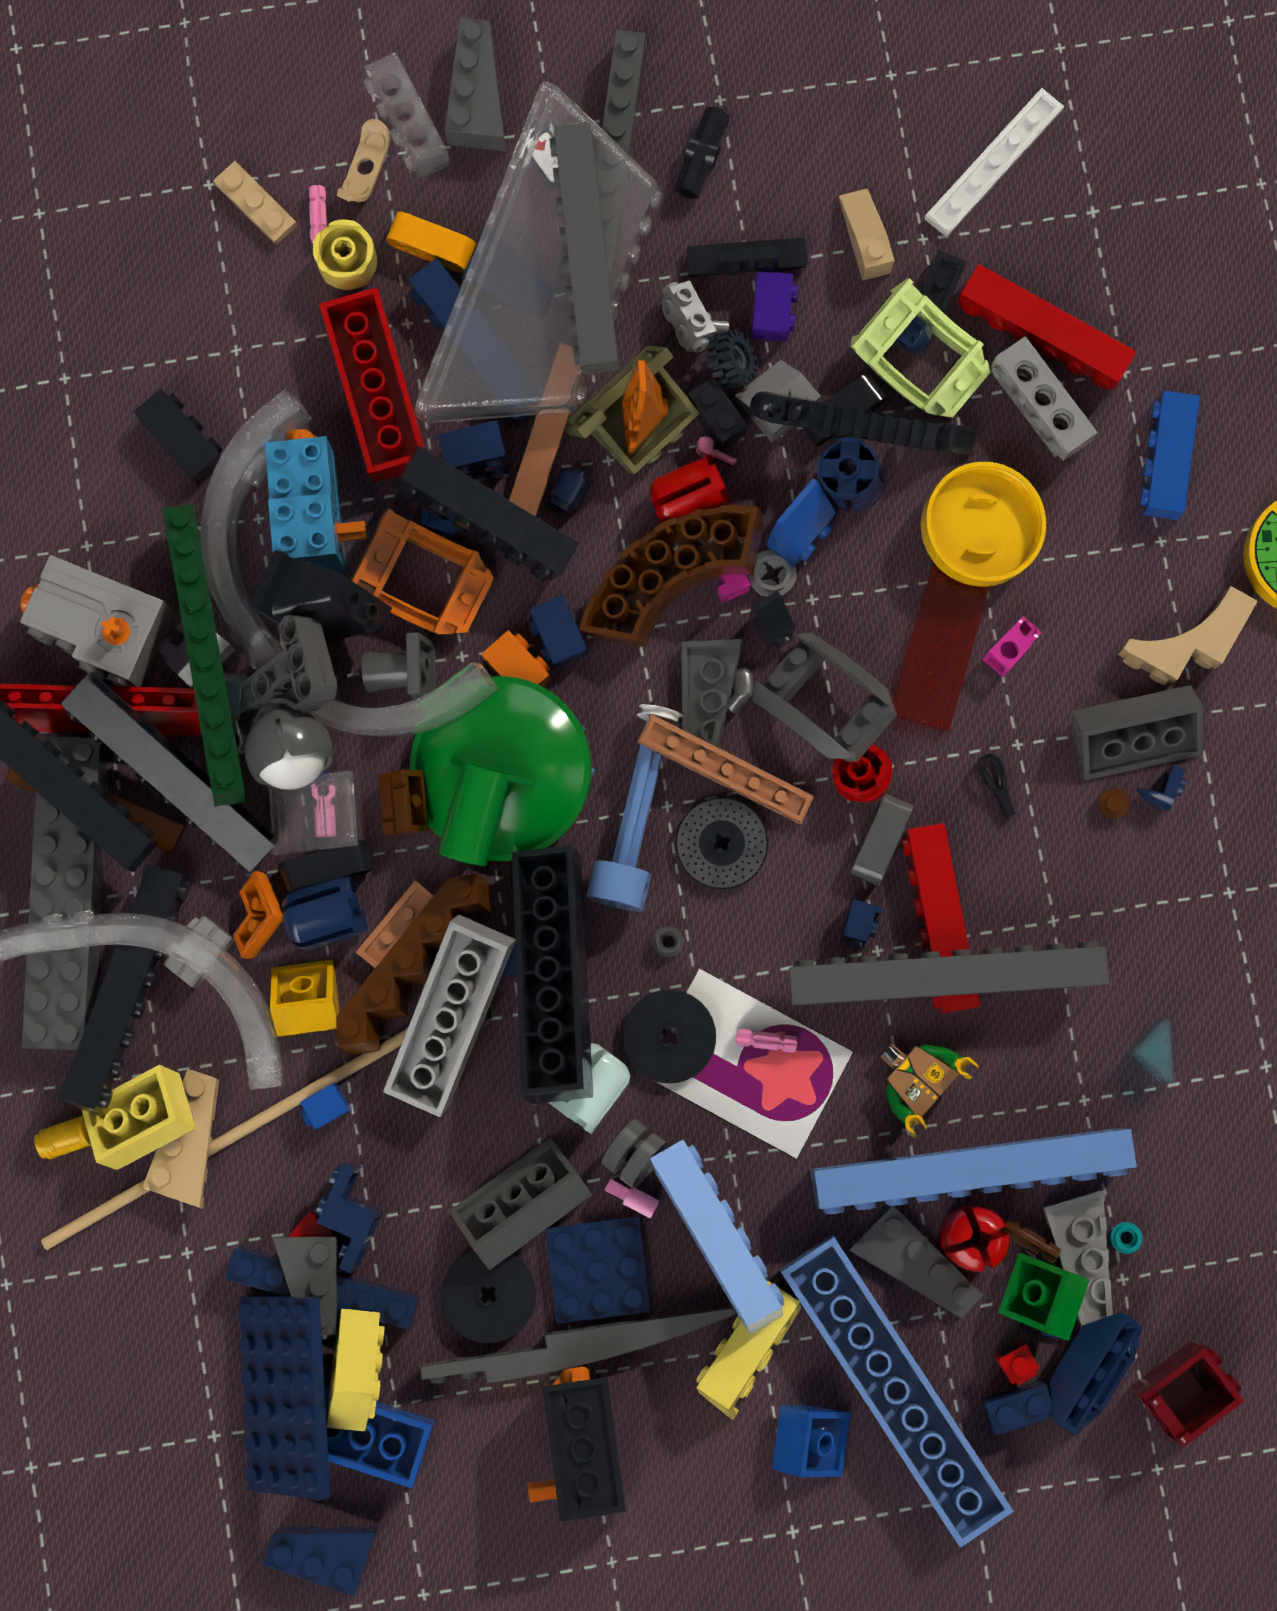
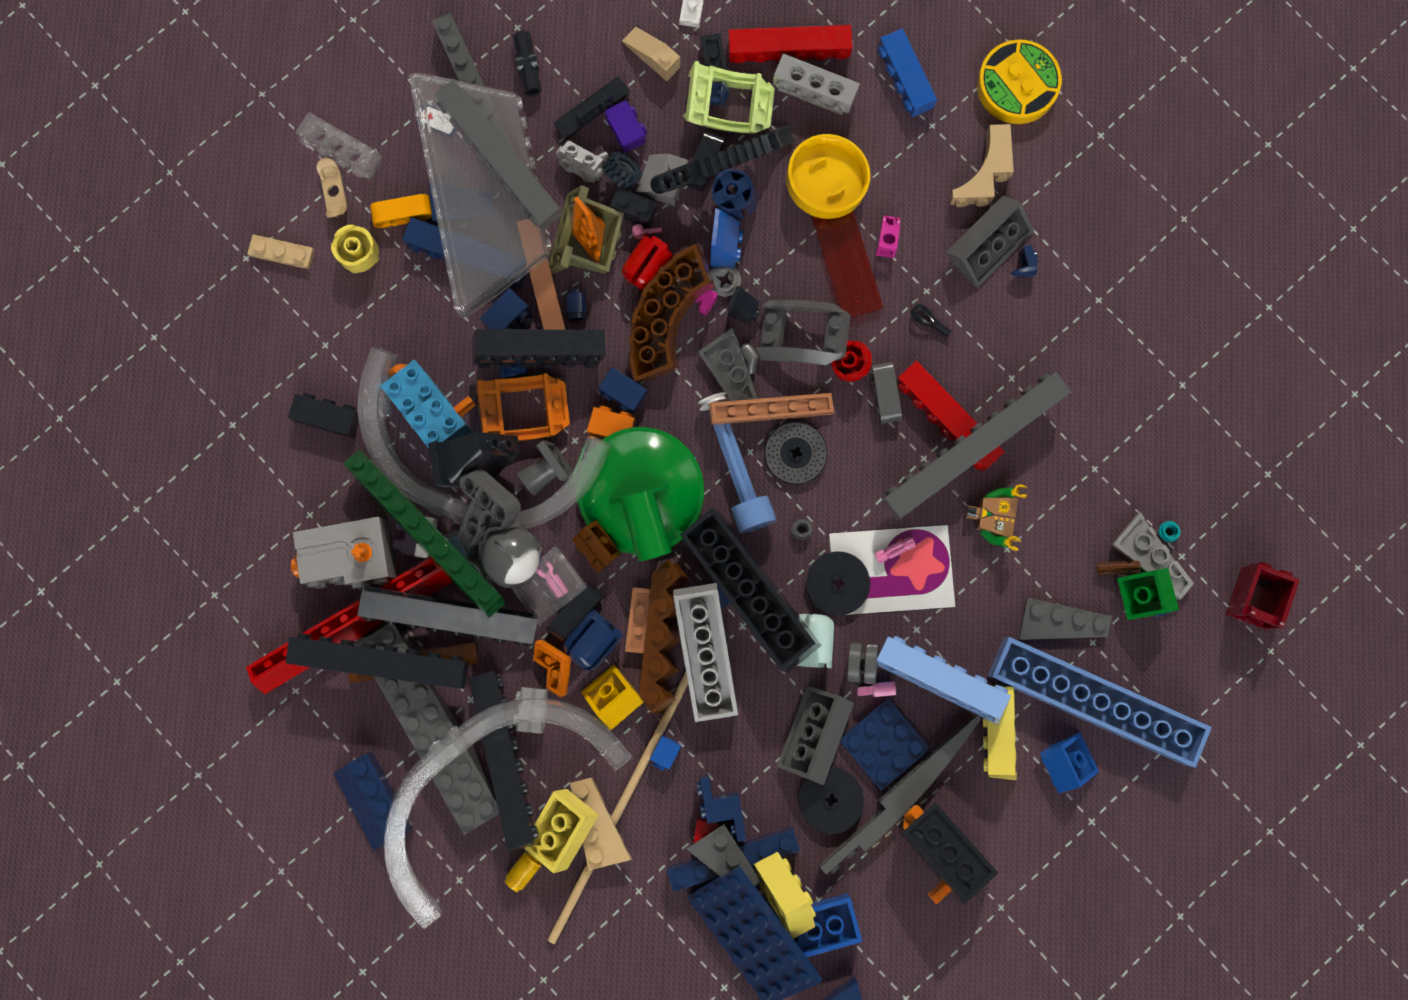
camera: 35 degrees left, 0 degrees up
(317, 210) = (321, 234): bright pink axle -> none
(372, 382) = (420, 312): red brick -> none
(474, 99) = (373, 111): dark grey wedge -> none
(860, 923) = (905, 448): dark blue brick -> none
(973, 1168) = (1060, 547): medium blue brick -> none
(989, 1247) = (1087, 586): red cylinder -> none
(1017, 1365) = (1158, 642): red window -> none
(1017, 1407) = (1173, 666): dark blue brick -> none
(1093, 1370) = (1200, 617): dark blue wedge -> none
(1114, 803) = (1003, 290): reddish brown plate -> none
(1155, 1051) = (1117, 415): clear light blue slope -> none

